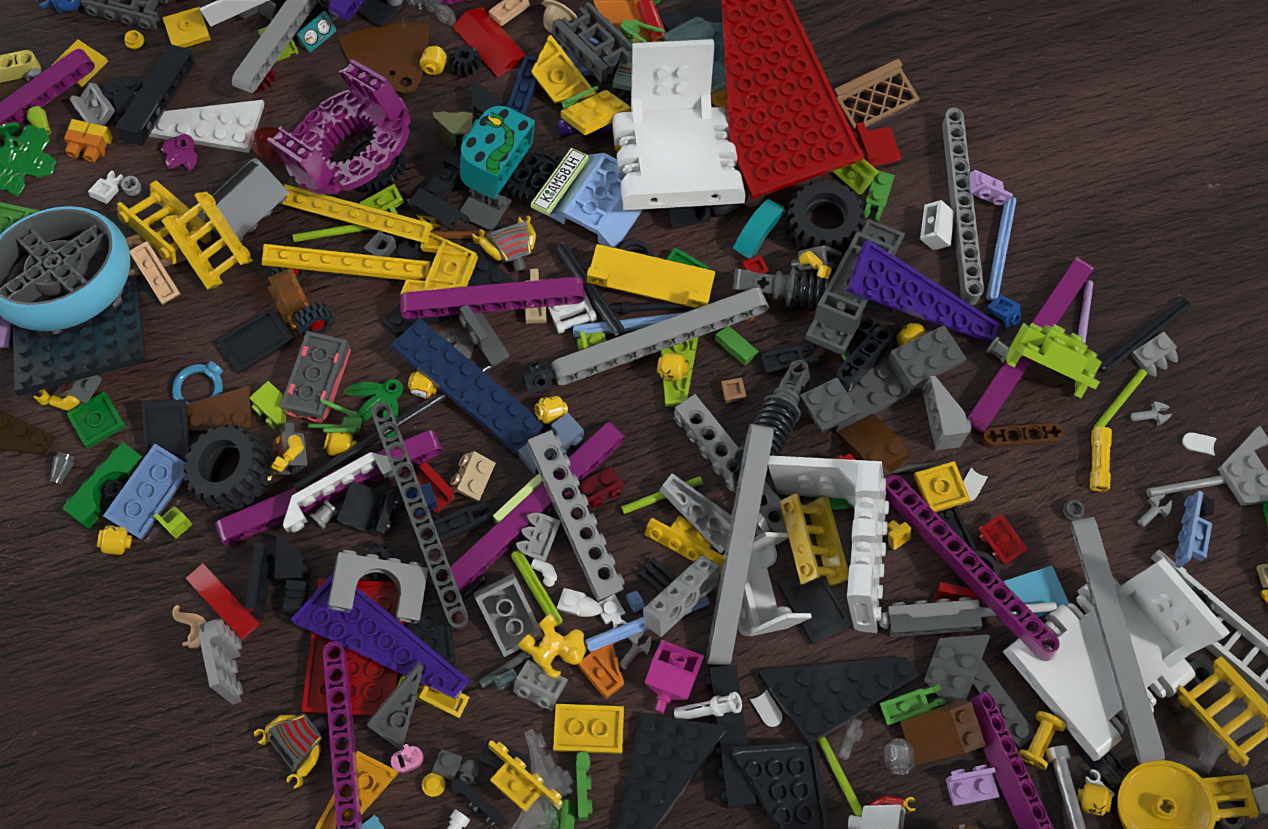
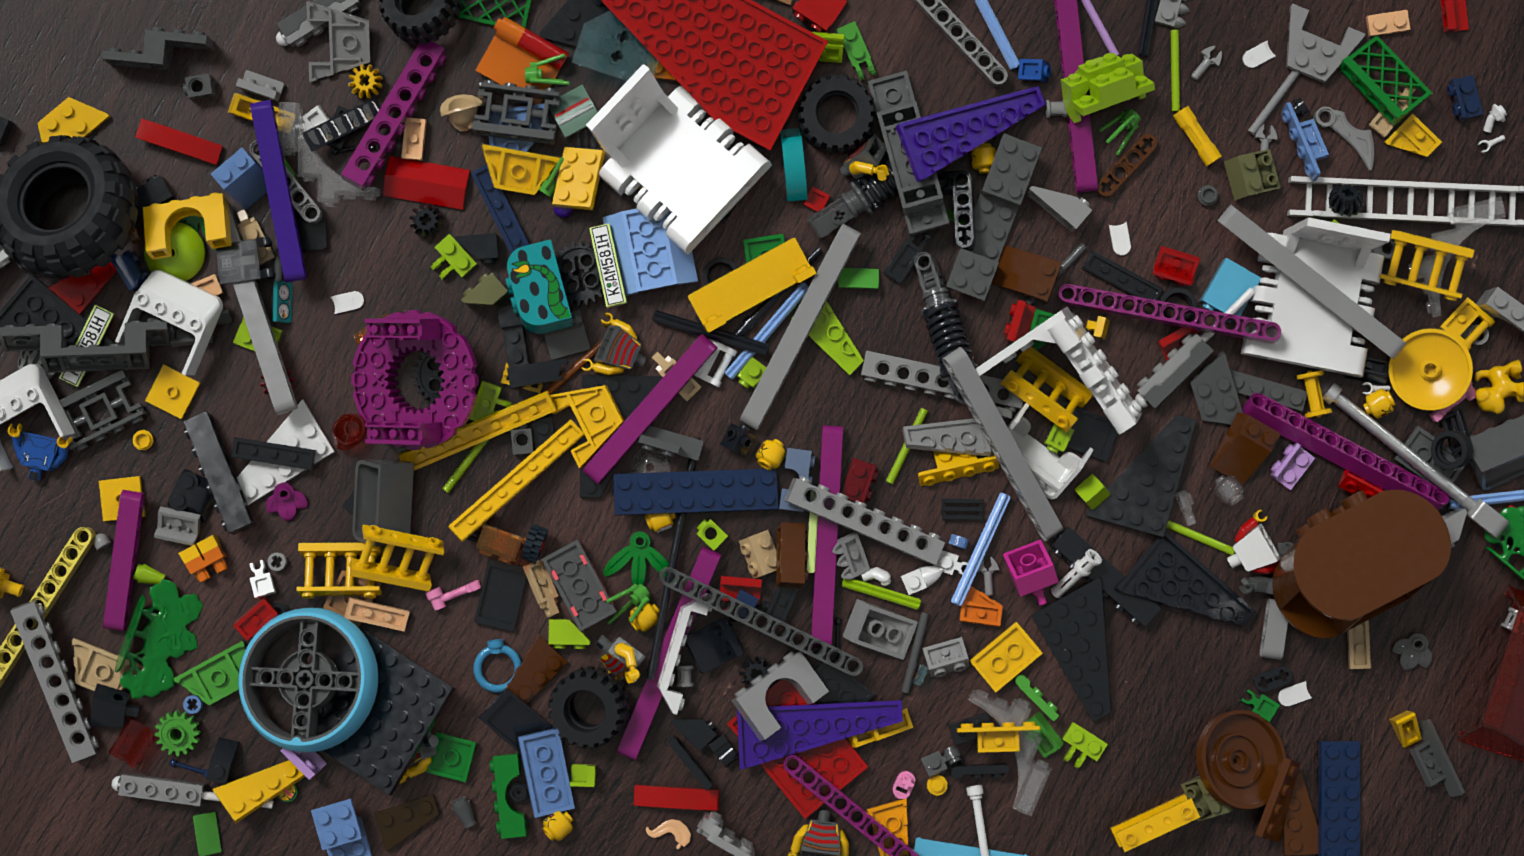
camera: 40 degrees left, 20 degrees up
(73, 199) = (255, 618): none -> red panel
(205, 113) = (273, 453): none -> black tile
(209, 303) = (438, 598): none -> bright pink brick
(287, 358) = (542, 587): none -> tan hinge
(388, 49) = (351, 265): reddish brown piece -> none
(394, 714) = (871, 767): dark grey wing -> none
(433, 60) = (402, 244): yellow head -> none
(453, 436) = (714, 543): none -> lime brick
(460, 95) = (455, 256): none -> lime hinge
(493, 493) = (791, 555): none -> reddish brown brick
(569, 647) = (945, 616): yellow animal -> none
(672, 366) = (832, 344): yellow head -> none
(681, 595) = (990, 512): light grey brick -> none
(733, 390) = (888, 318): medium nougat plate -> none
(767, 709) = (1112, 534): white piece -> none
(781, 655) = (1092, 491): none -> lime panel
(789, 589) = (1058, 439): none -> lime bracket
(909, 704) = (1207, 446): bright green hinge -> none
(937, 225) = (925, 41): white brick -> none
(942, 486) = (1102, 264): yellow plate -> none
(1050, 403) = (1128, 121): none -> bright green plant
(1125, 522) = (1252, 174): none -> olive slope
(1240, 574) = (1359, 139): none -> light grey piece

